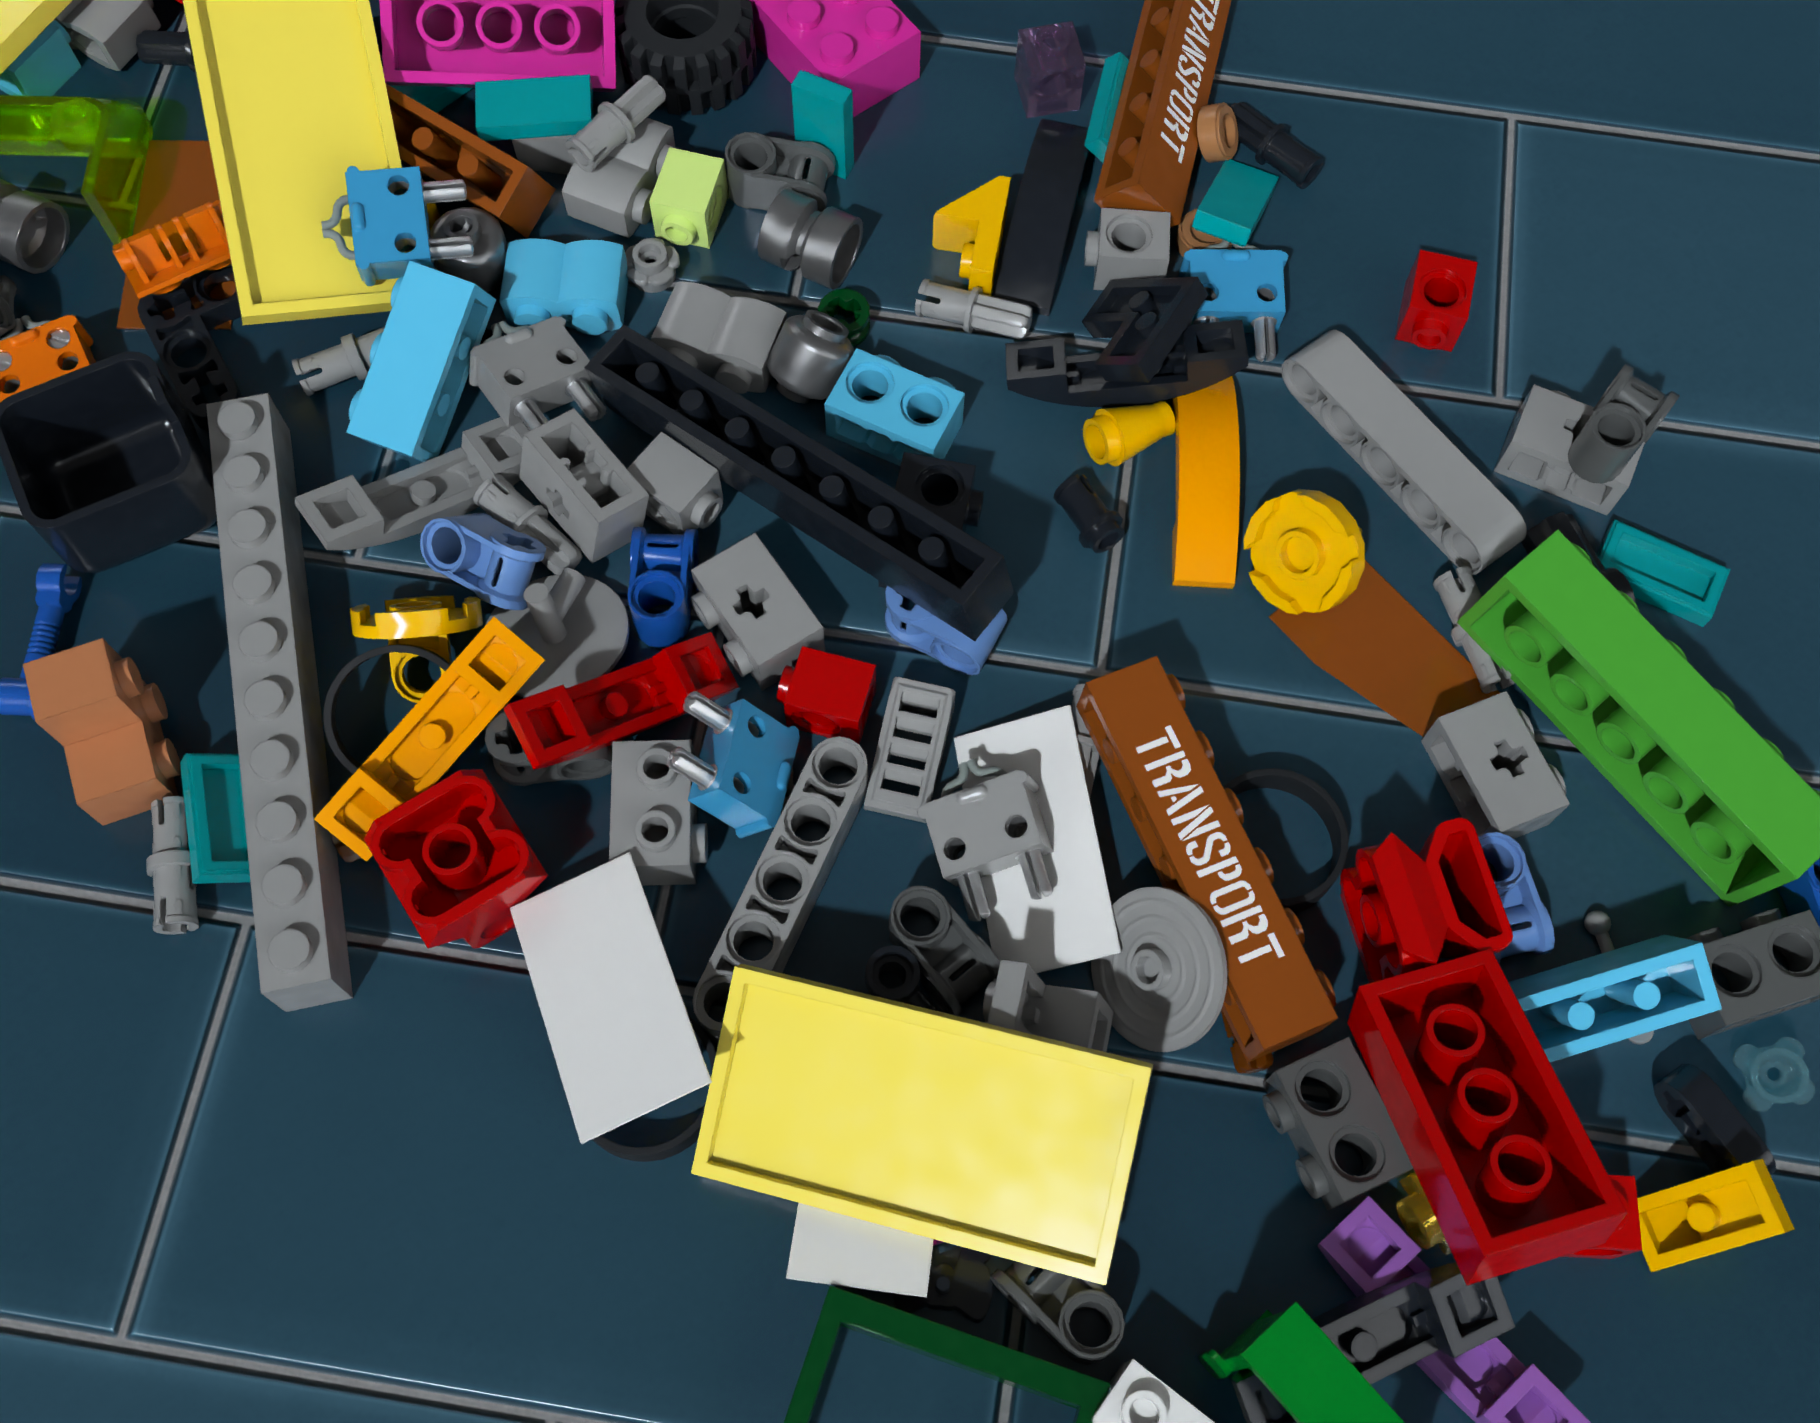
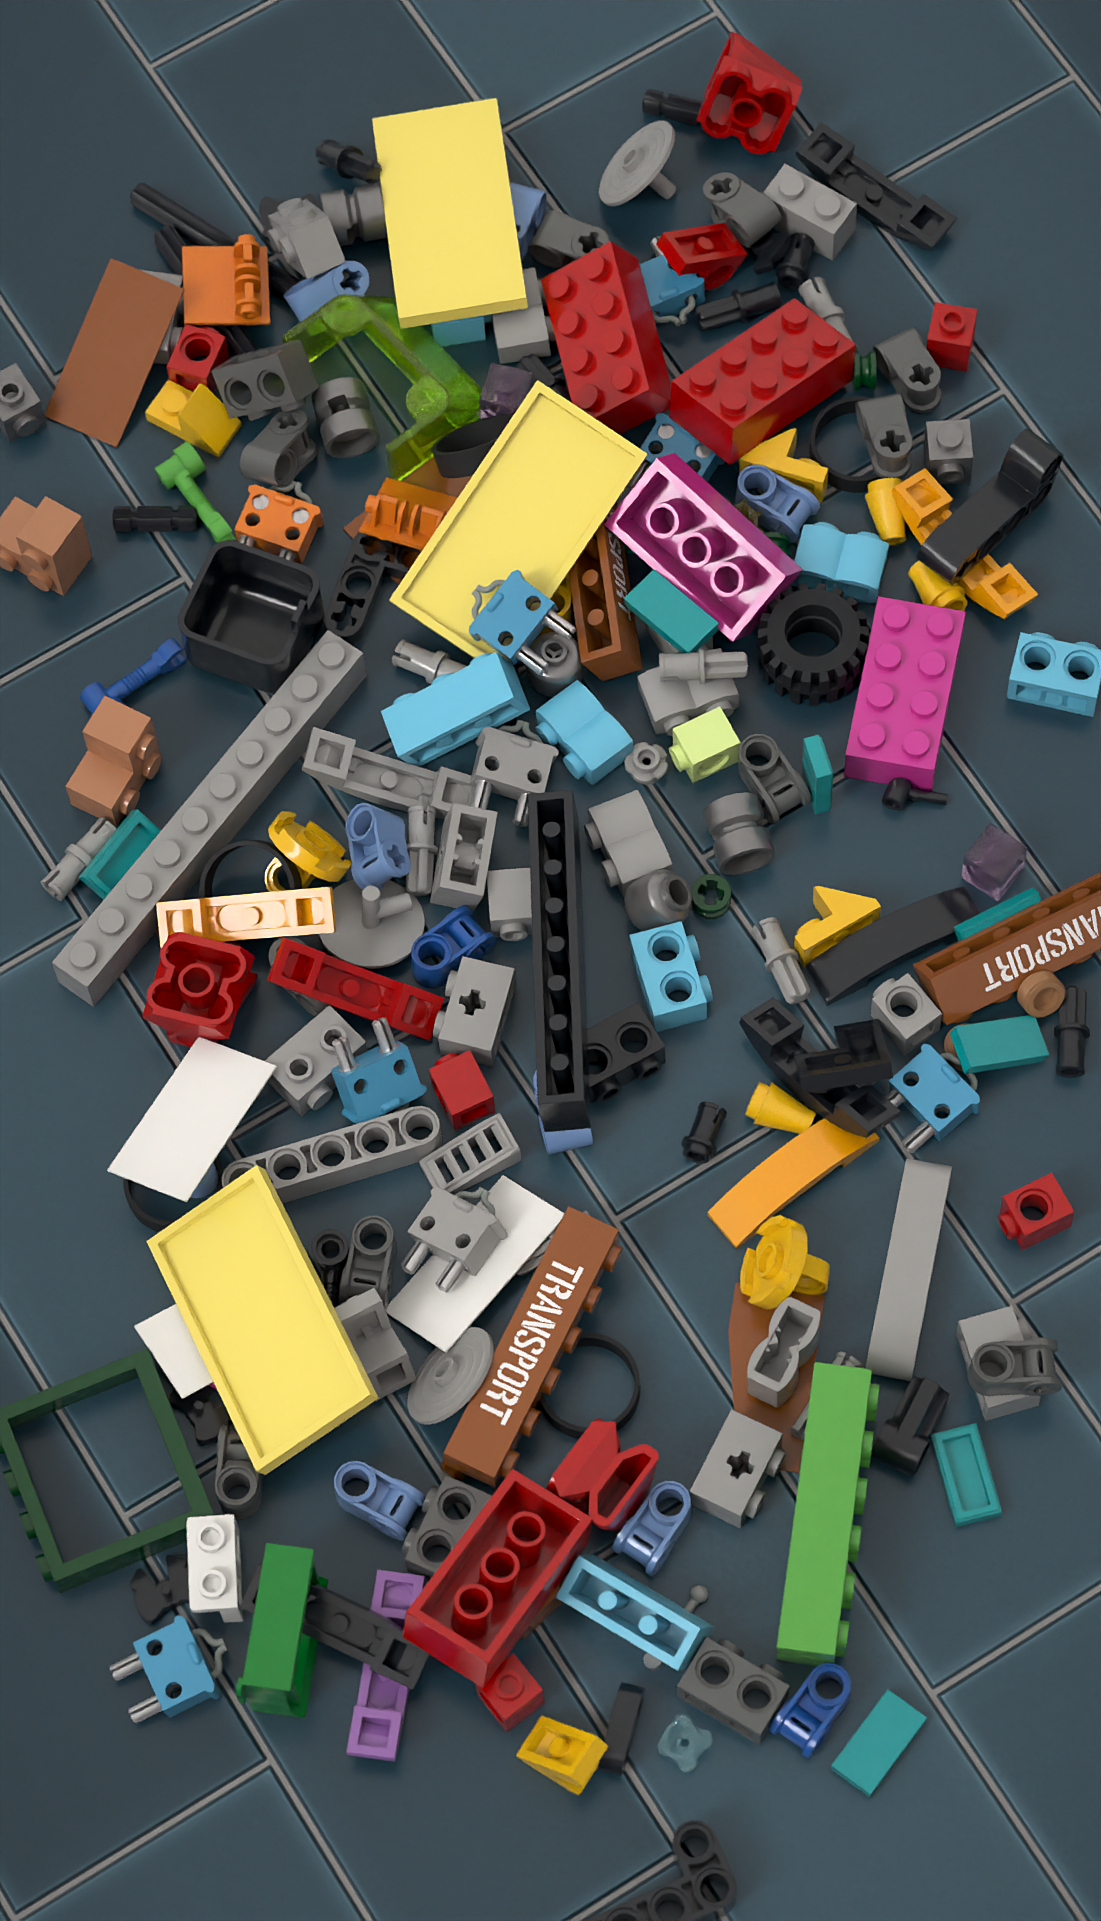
camera: 55 degrees right, 0 degrees up
(159, 80) = (504, 390): none -> clear purple brick
(172, 136) = (464, 449): none -> black tyre
(901, 97) = (901, 790): none -> black hand
(1239, 1169) = (380, 1500): none -> medium blue piece
(1416, 630) = (777, 1359): none -> light grey brick

